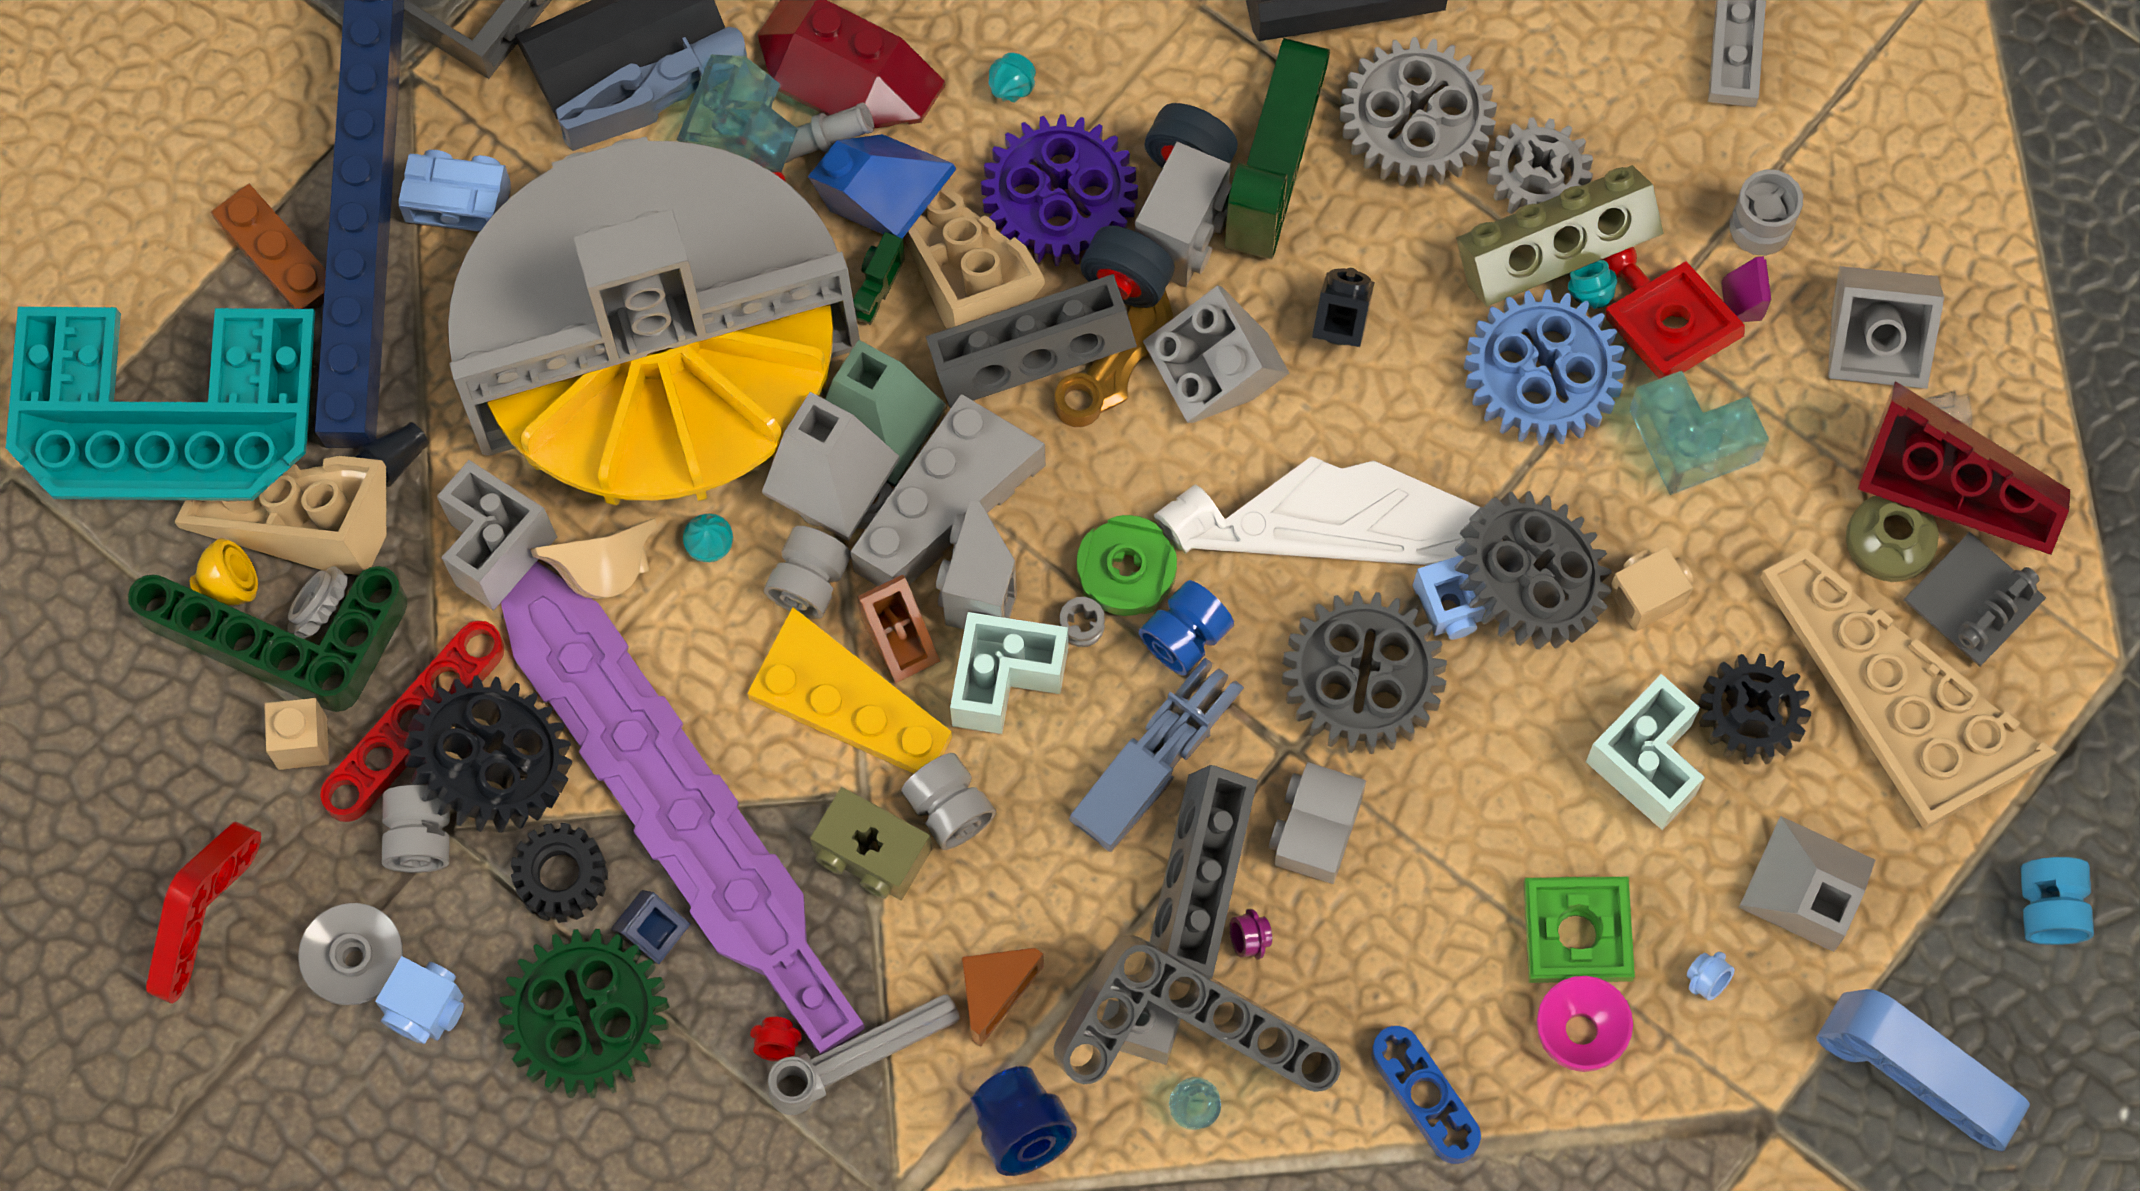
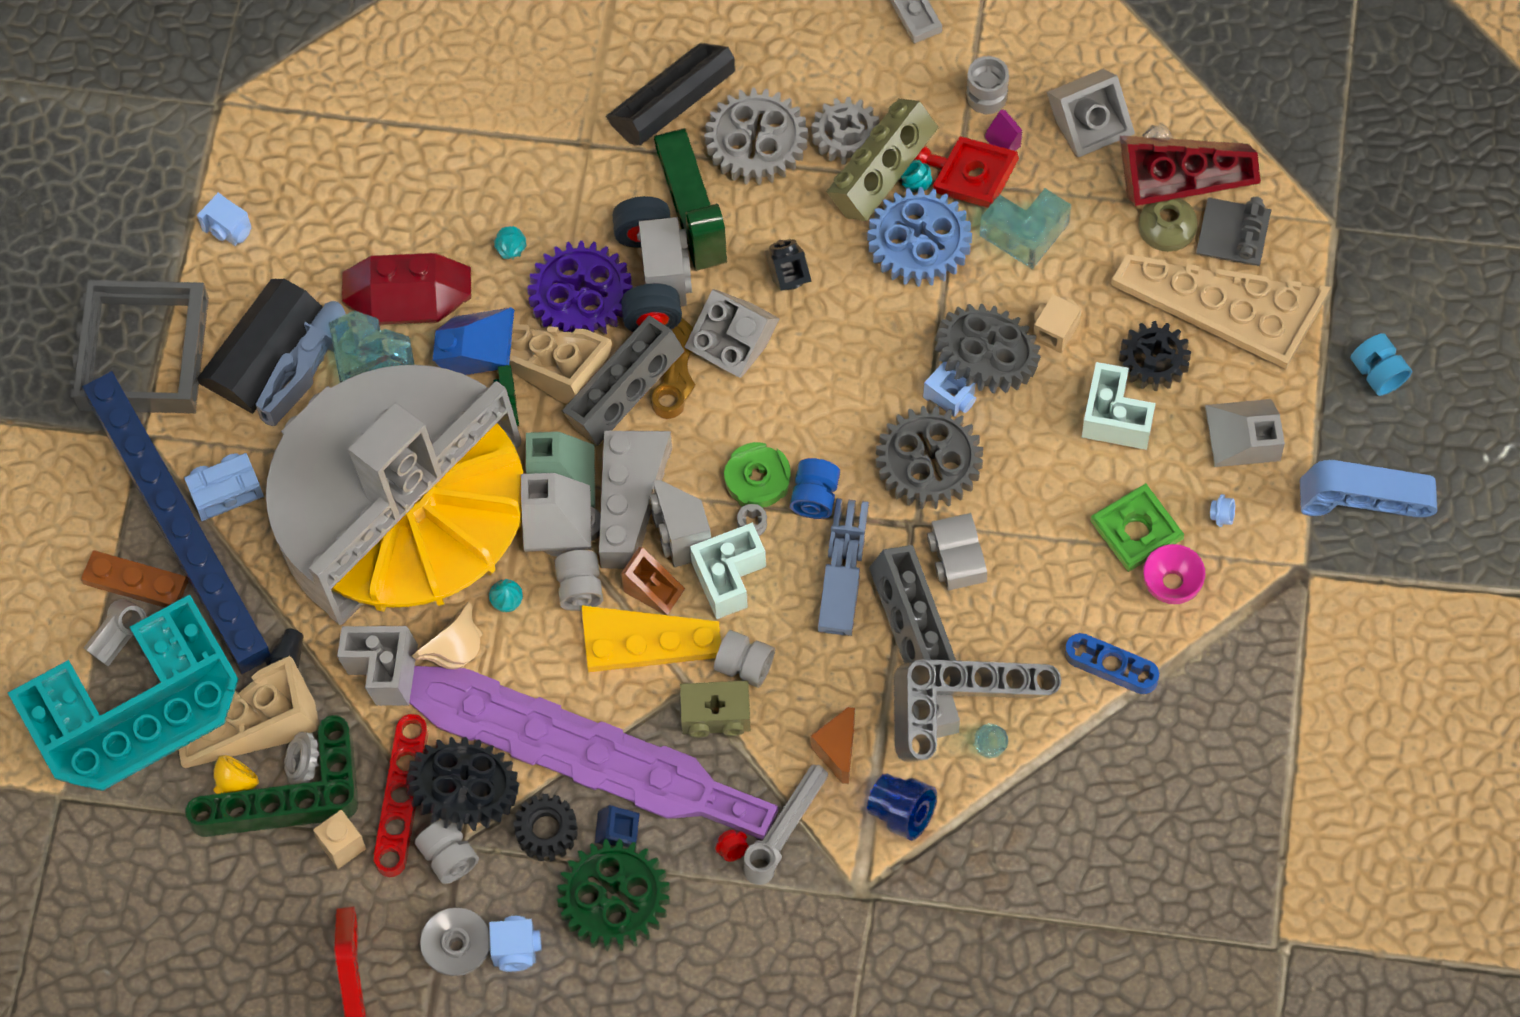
camera: 30 degrees left, 5 degrees down
(195, 305) = (113, 634): none -> light grey piece
(826, 130) = (426, 327): light grey pin -> none
(1250, 934) = (960, 634): magenta plate -> none
(1330, 514) = (852, 383): white wing -> none

